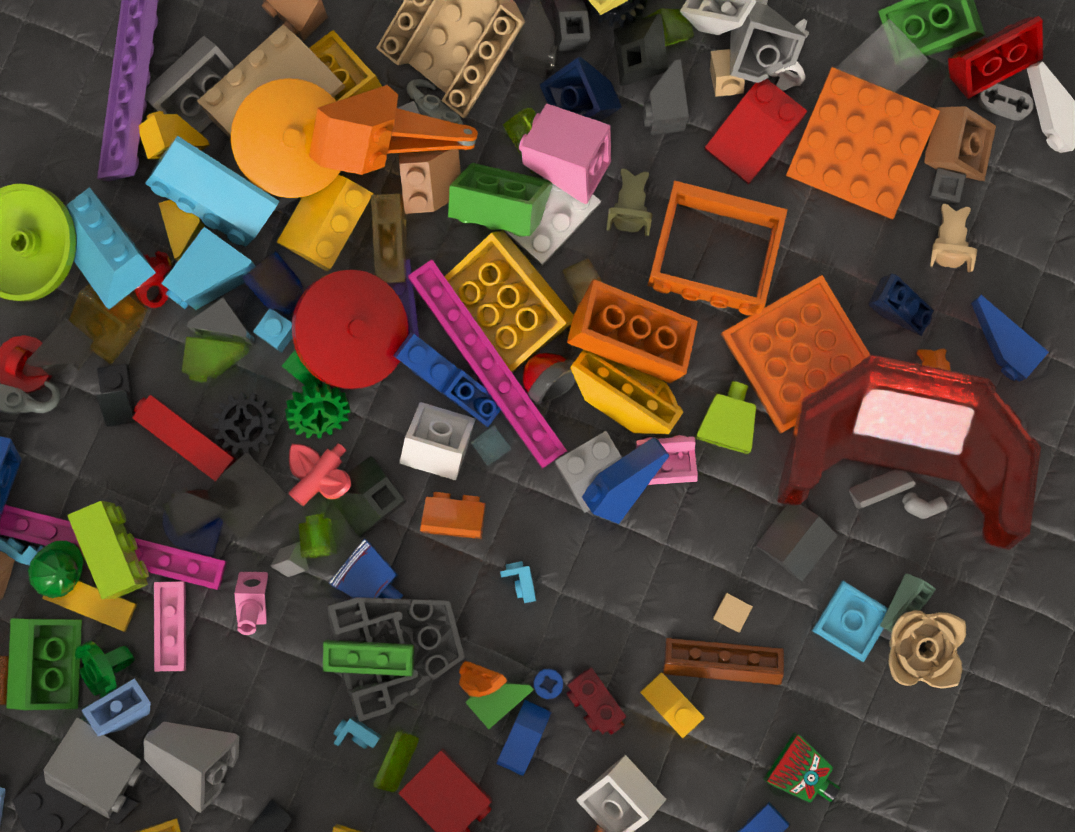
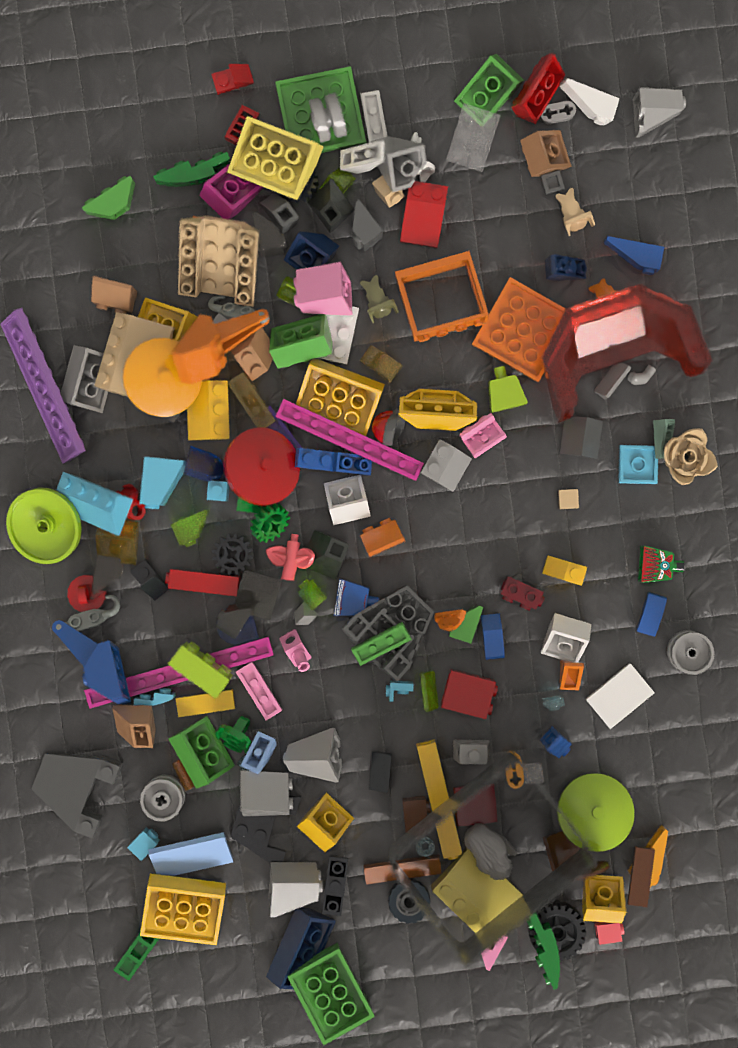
camera: 30 degrees left, 5 degrees up
(56, 569) = (177, 697): green piece -> none
(162, 129) = (91, 416): yellow slope -> none
(180, 227) = (128, 460): yellow slope -> none
(211, 192) = (135, 434): medium azure slope -> none
(222, 323) = (186, 504): dark grey slope -> none
(491, 446) = (378, 484): clear light blue plate -> none
(524, 586) = (443, 552): medium azure bracket -> none
(545, 681) = (486, 596): blue wheel -> none
(624, 481) = (466, 463): blue slope -> none
(633, 332) = (422, 373): orange slope -> none
(724, 661) = (579, 529): dark orange slope -> none
(862, 143) = (489, 186): orange plate -> none

